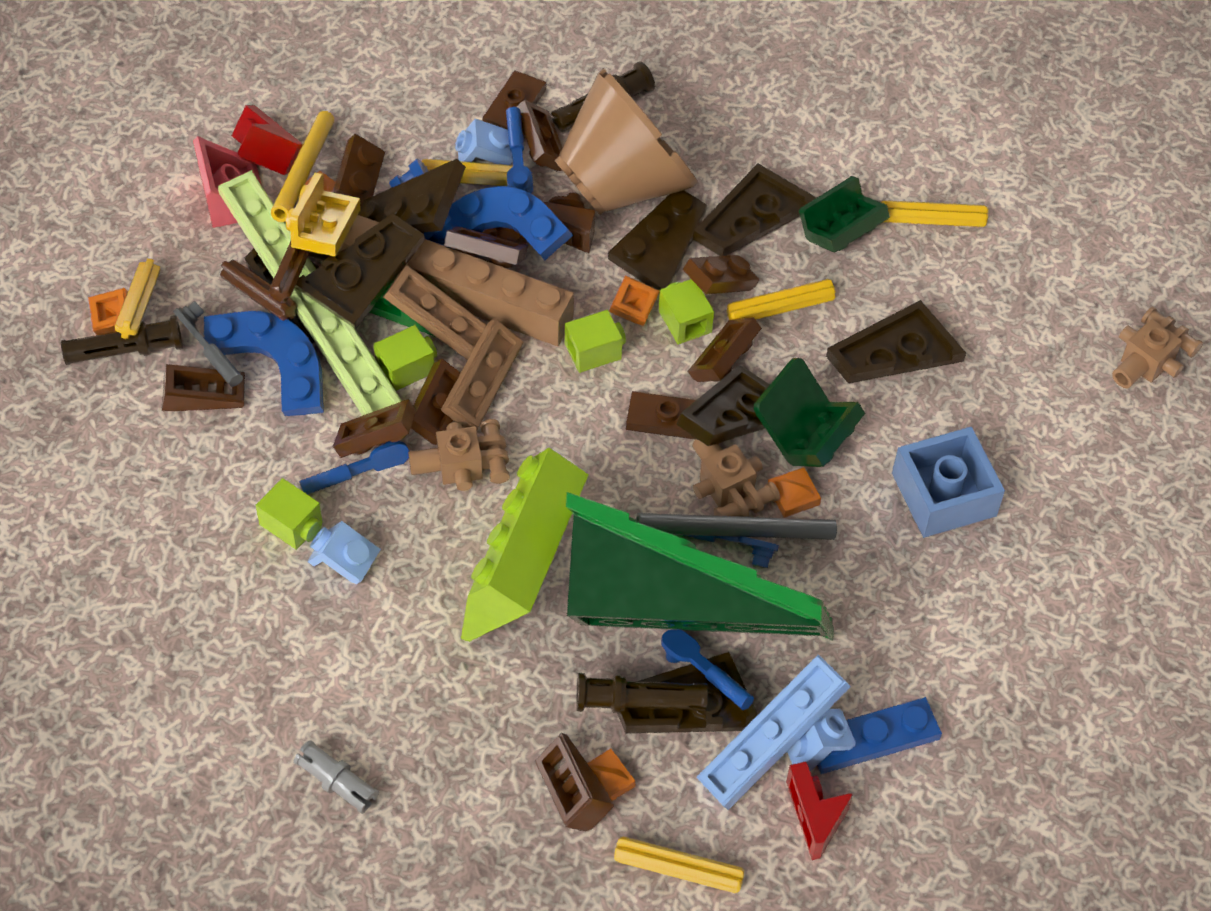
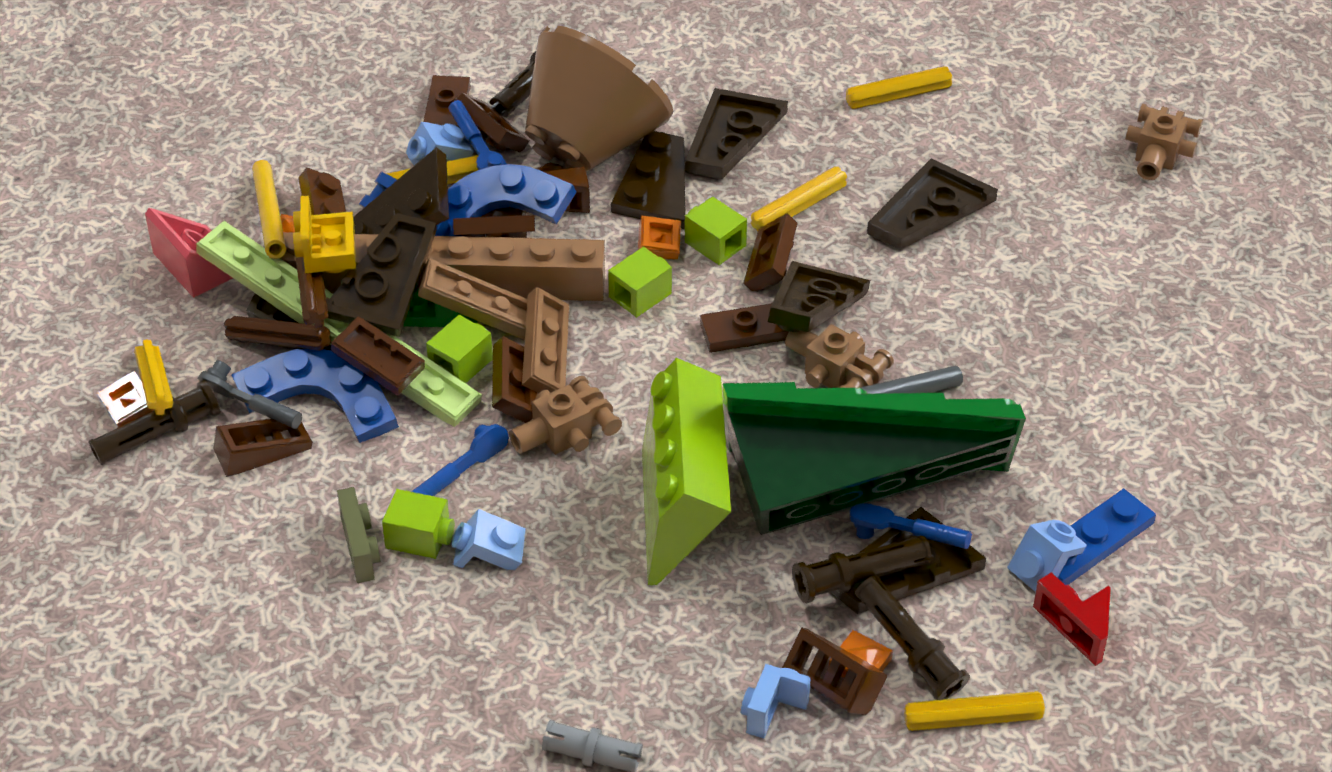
camera: 20 degrees left, 10 degrees down
(233, 519) = (355, 521): none -> olive plate
(265, 141) = (213, 201): red slope -> none
(325, 343) = (378, 355): none -> reddish brown plate
(374, 429) = (465, 419): reddish brown plate -> none
(499, 787) = (773, 687): none -> light blue bracket
(657, 795) = (923, 653): none -> dark brown pin
(721, 274) = (734, 187): reddish brown plate -> none
(773, 732) = (1006, 557): light blue tile -> none
(795, 492) = (907, 354): orange tile -> none
(803, 418) = (883, 294): dark green bracket -> none
(841, 216) = (818, 112): dark green bracket -> none
(947, 482) = (1044, 298): medium blue brick -> none

